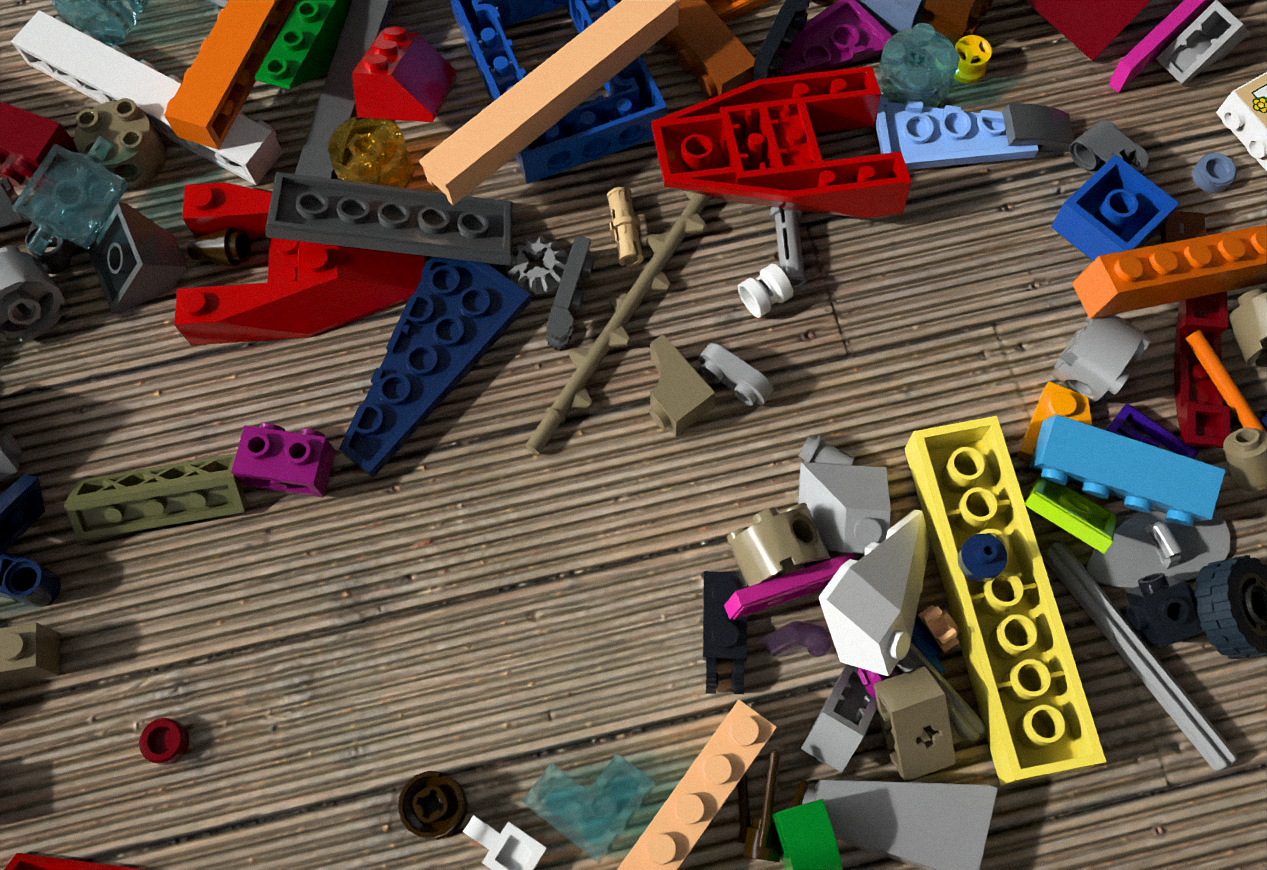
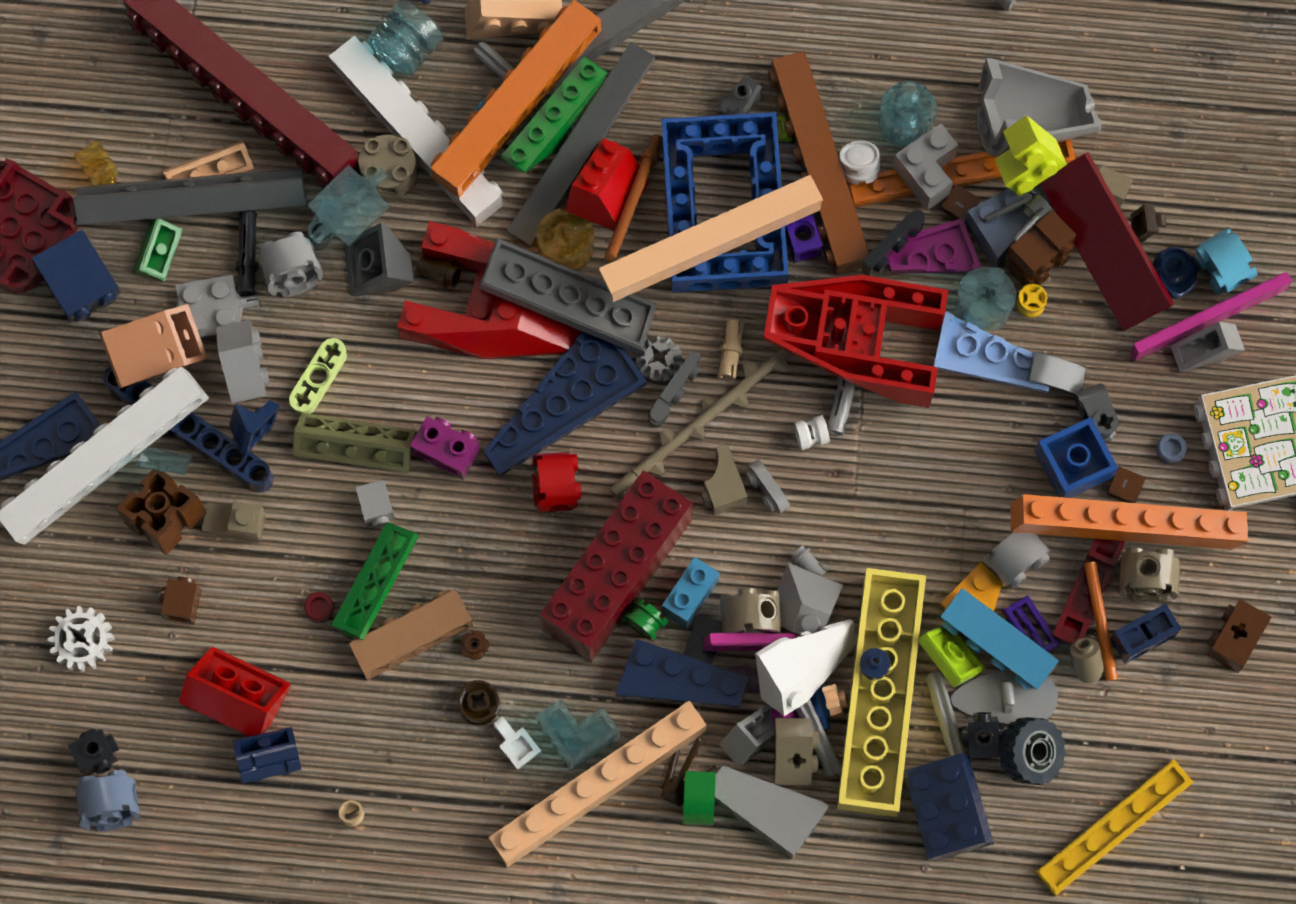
camera: 15 degrees right, 5 degrees up
(82, 411) = (335, 362): none -> yellowish green beam
(207, 568) = (375, 504): none -> light grey brick
(229, 679) = (374, 581): none -> green fence
(303, 739) = (411, 634): none -> medium nougat brick
(413, 727) = (477, 652): none -> reddish brown plate
(446, 44) = (648, 160): none -> dark orange bar
(448, 458) = (555, 482): none -> red brick
(568, 543) = (616, 566): none -> dark red brick
(632, 603) = (644, 619): none -> green wheel
(670, 71) = (805, 249): none -> dark purple brick
(683, 546) = (690, 592): none -> dark azure brick
(702, 672) = (667, 675): none -> dark blue wing
(1168, 731) = (948, 807): none -> dark blue brick

